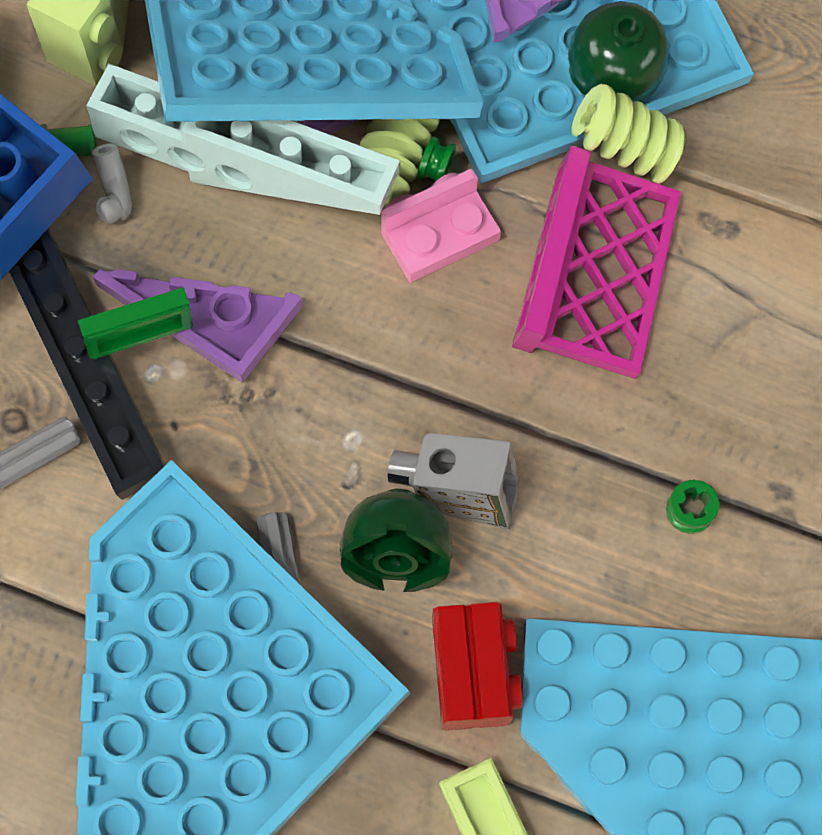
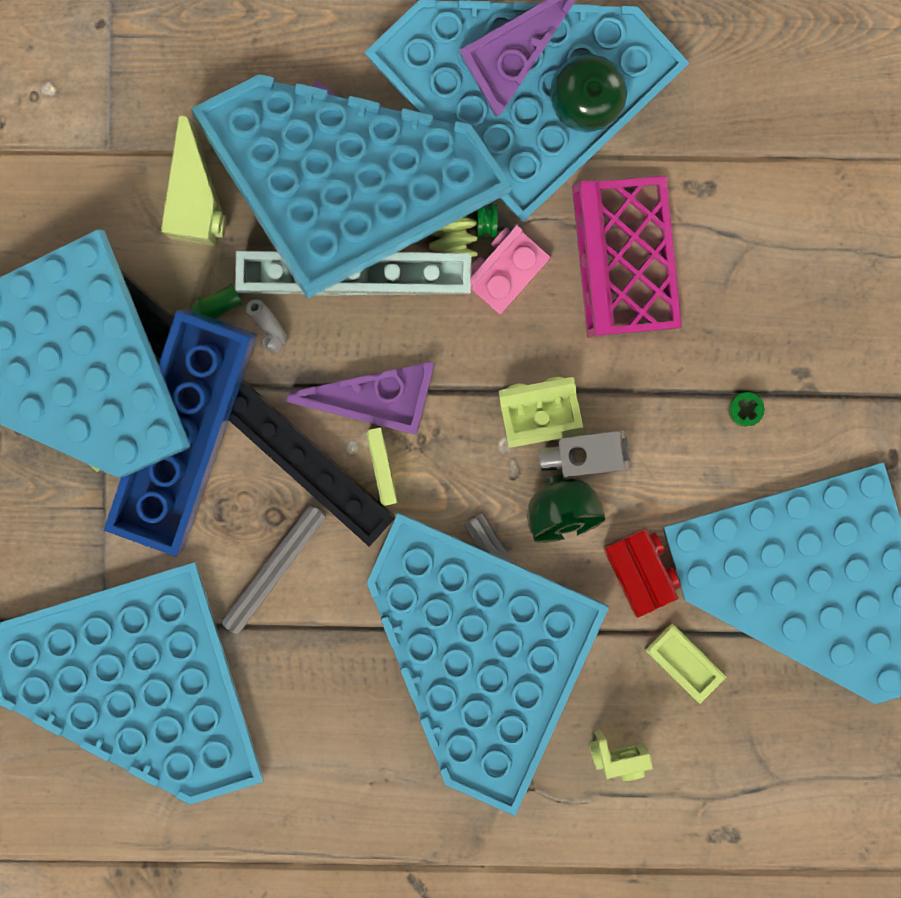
camera: 15 degrees left, 20 degrees up
(136, 323) = (337, 431): green tile -> none
(178, 400) = (381, 466): none -> yellowish green tile
(413, 399) = (540, 411): none -> yellowish green bracket
(629, 131) = (617, 155): yellowish green piece -> none

